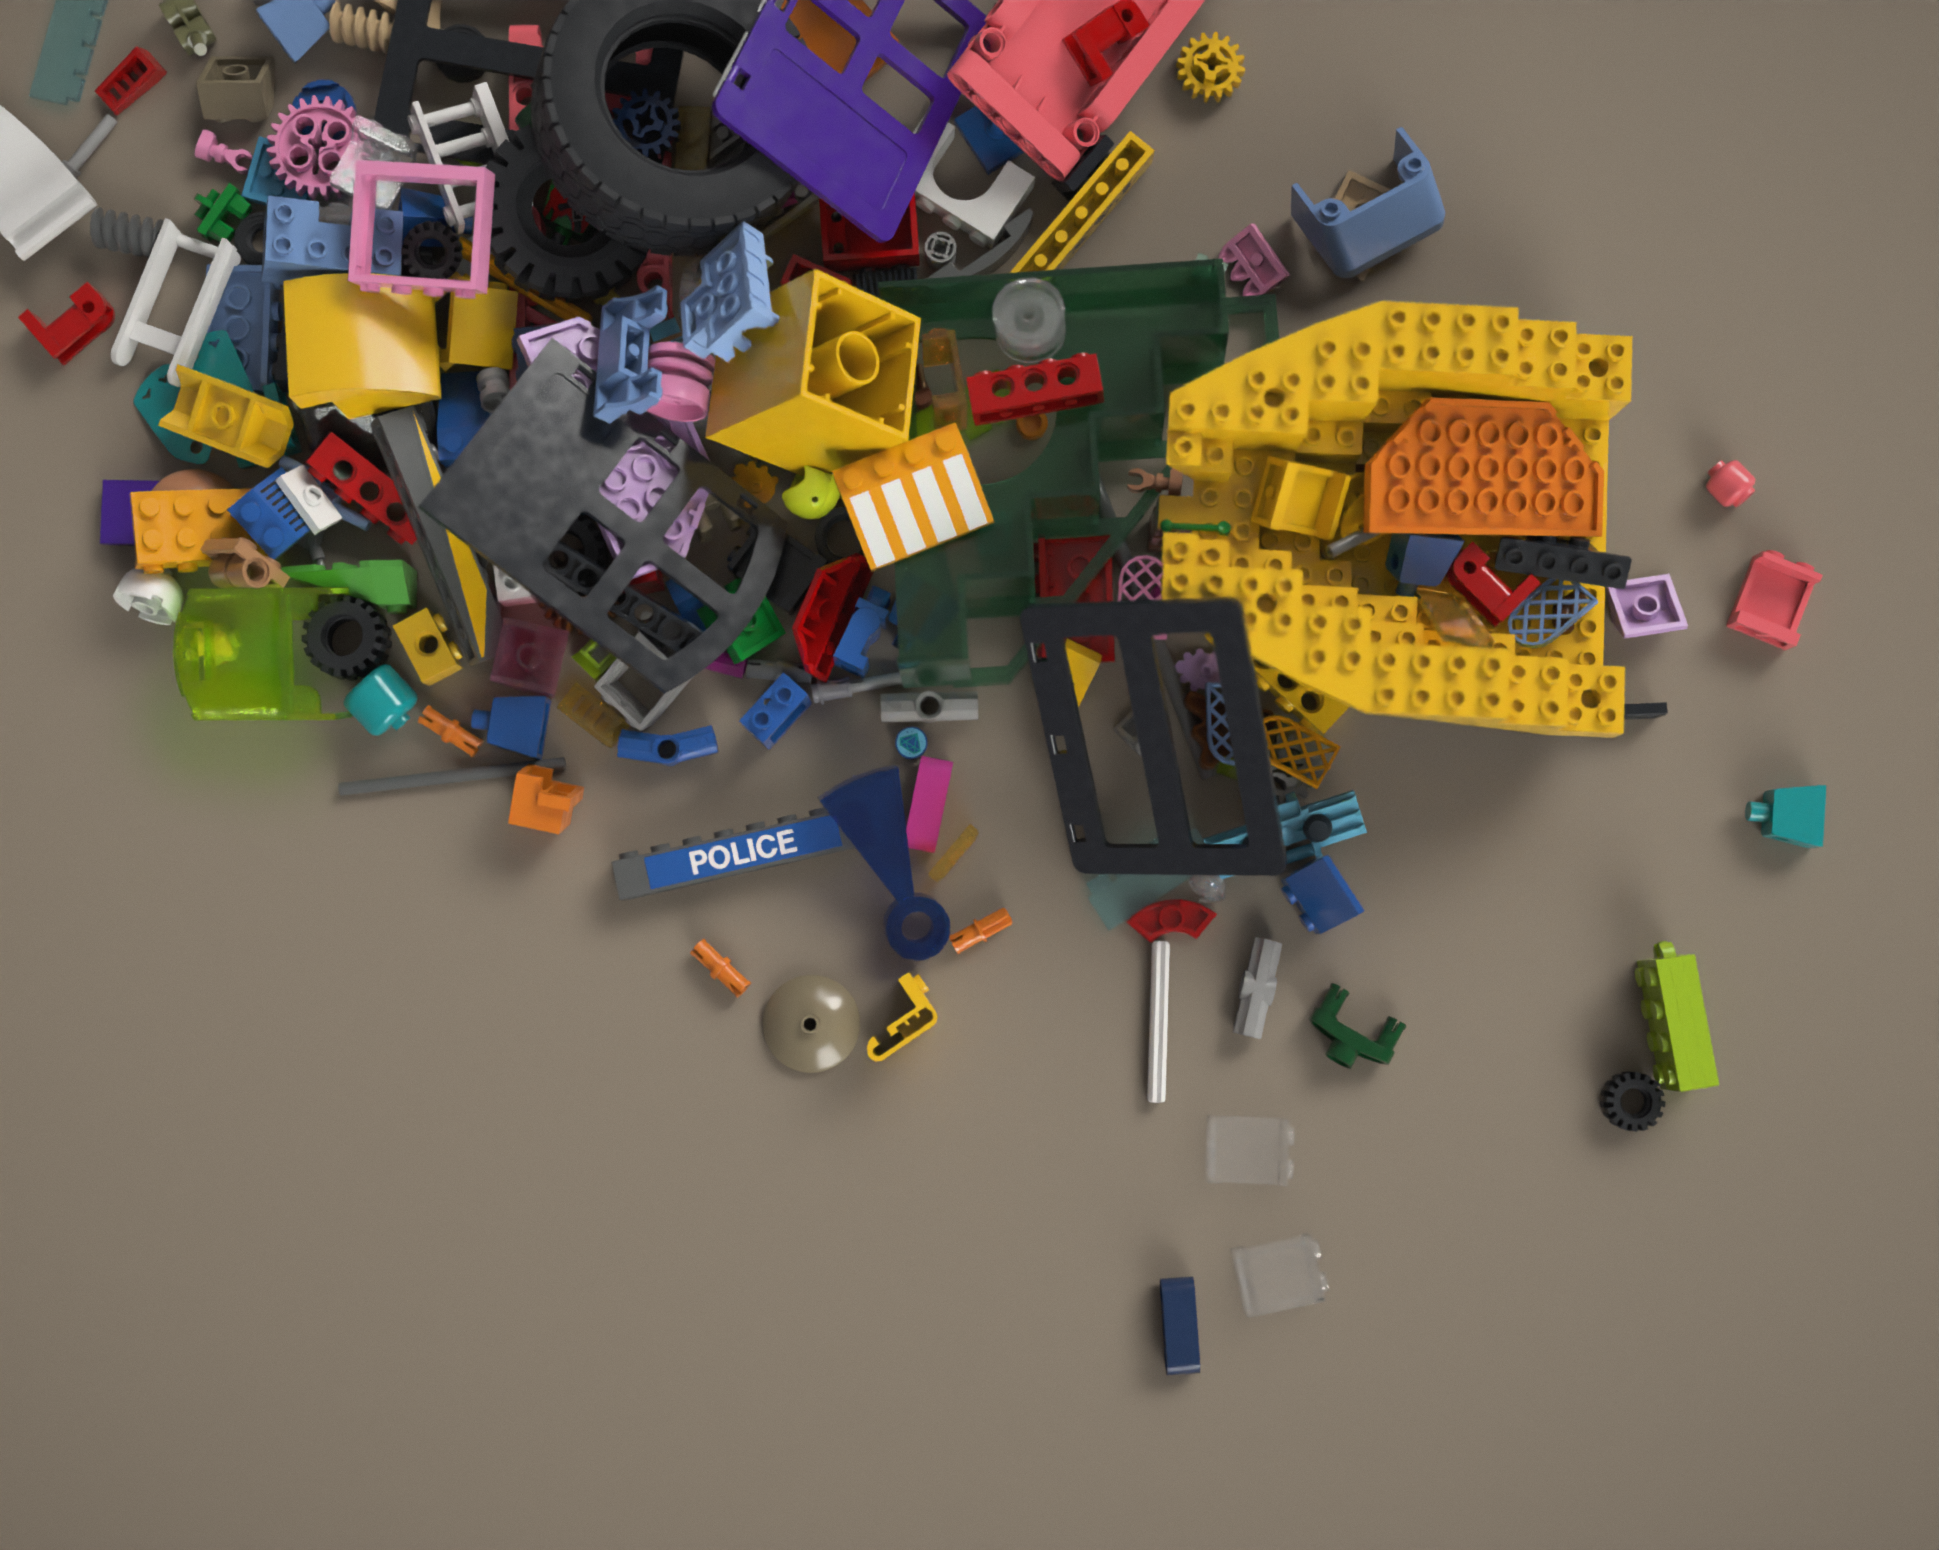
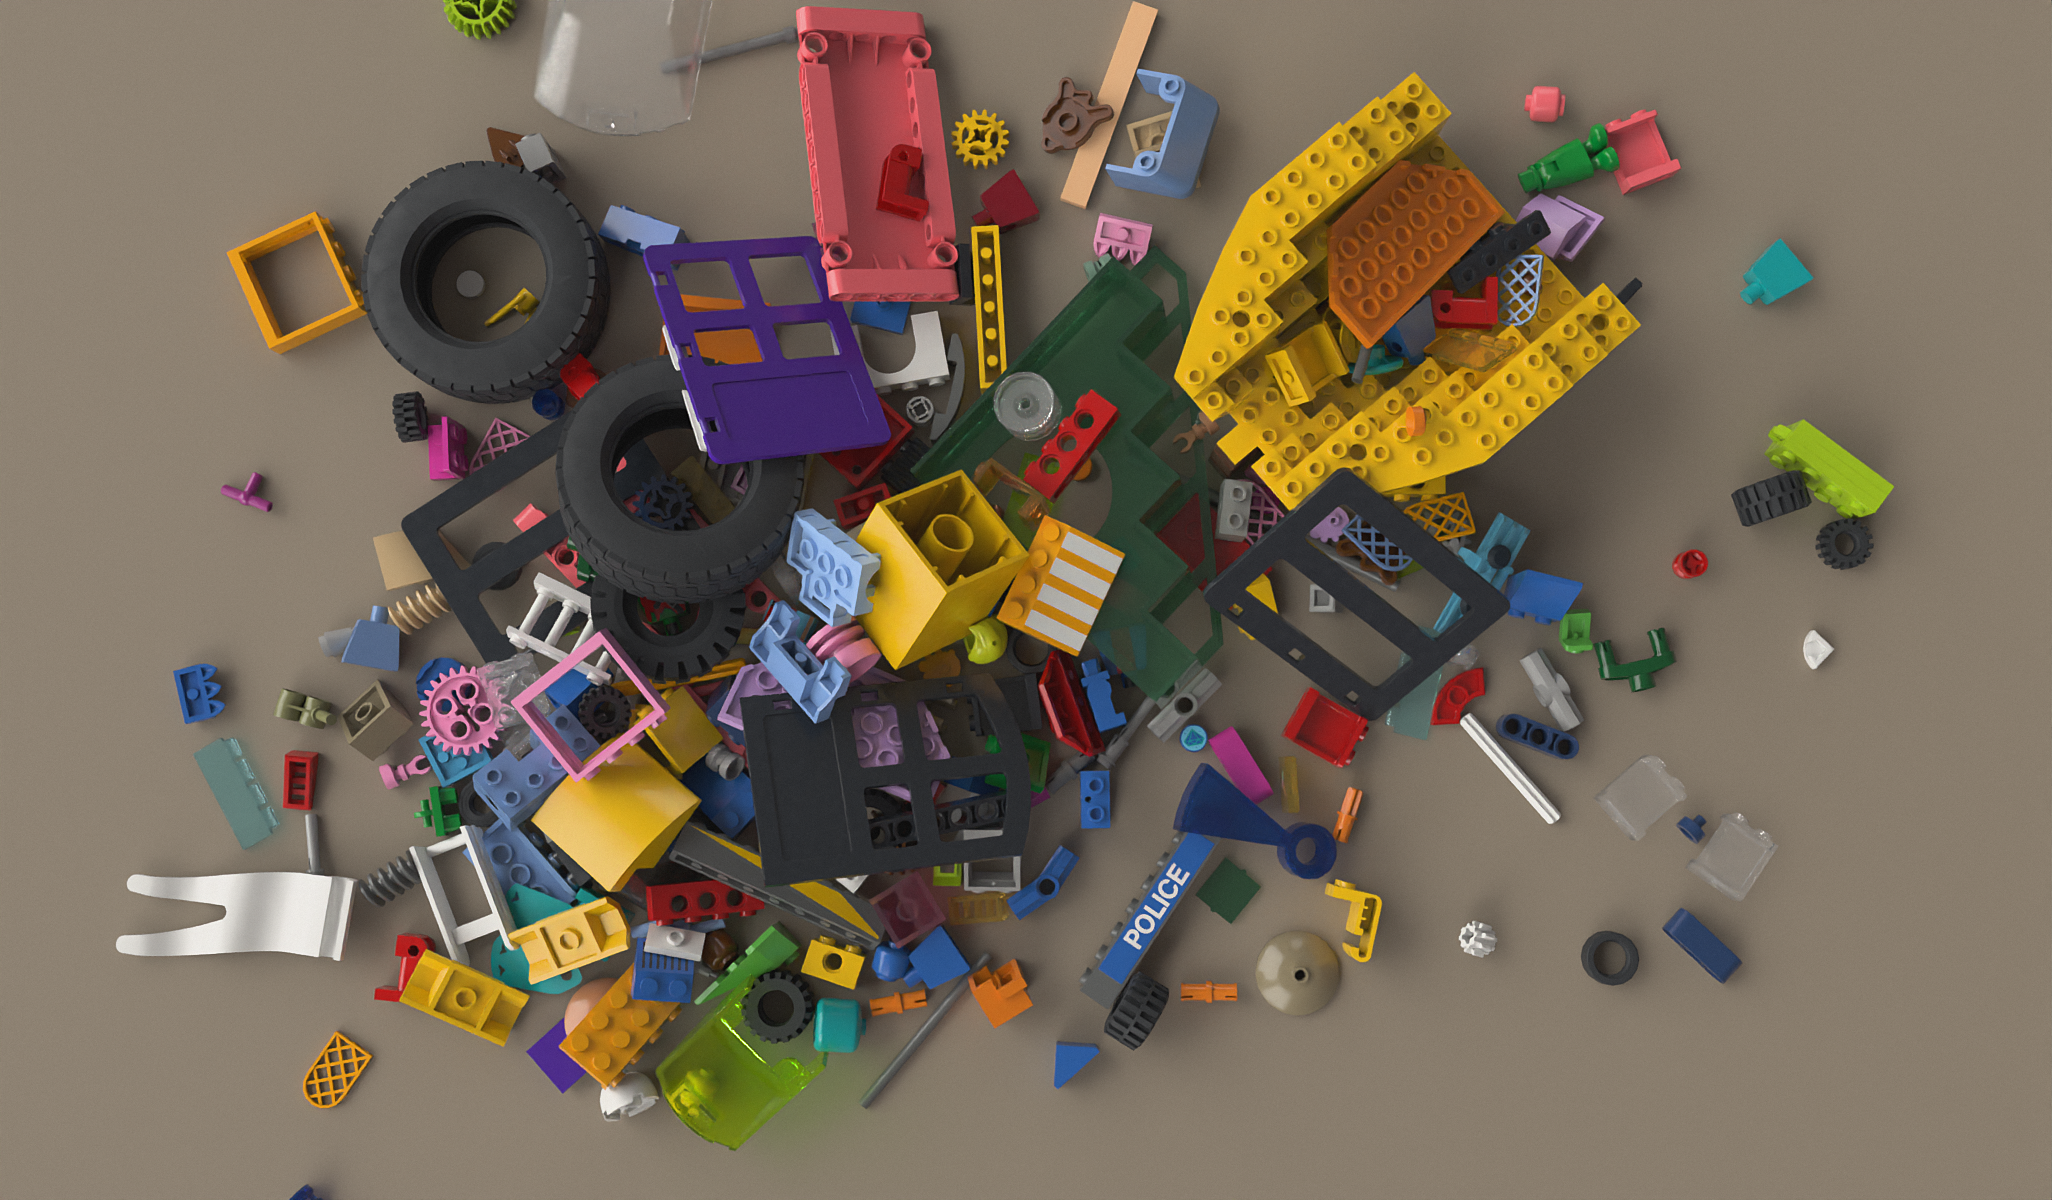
camera: 30 degrees left, 0 degrees up
(93, 385) = (464, 997): none -> yellow piece
(239, 565) = (674, 1025): medium nougat plate -> none
(342, 543) = (719, 950): none -> reddish brown head
(475, 690) = (890, 962): none -> blue head
(549, 912) = (1070, 1059): none -> blue slope
(642, 922) = (1136, 1011): none -> black tyre
(818, 899) = (1228, 890): none -> clear green piece
(991, 1138) = (1477, 939): none -> white gear
(1031, 838) = (1325, 728): none -> red panel
(1112, 1273) = (1631, 962): none -> black tyre
(1127, 575) = (1233, 510): none -> light grey brick
(1180, 144) = (1007, 205): none -> dark red torso
(1218, 1027) = (1550, 738): none -> dark blue beam
(1222, 528) = (1278, 427): green hinge -> none
(1266, 1218) = (1692, 828): none -> dark blue tile
(1306, 121) = (1071, 118): none -> reddish brown tile
(1326, 956) = (1575, 631): none -> bright green bracket
(1338, 619) = (1415, 421): none -> orange tile
(1350, 140) = (1114, 93): none -> light nougat tile
(1365, 559) = (1379, 362): none -> teal piece
(1486, 994) = (1696, 563): none -> red wheel
(1521, 1168) = (1816, 649): none -> white tile
(1603, 999) = (1771, 498): none -> black tyre
(1642, 596) = (1561, 220): none -> lavender slope
(1704, 555) = (1571, 163): none -> green piece

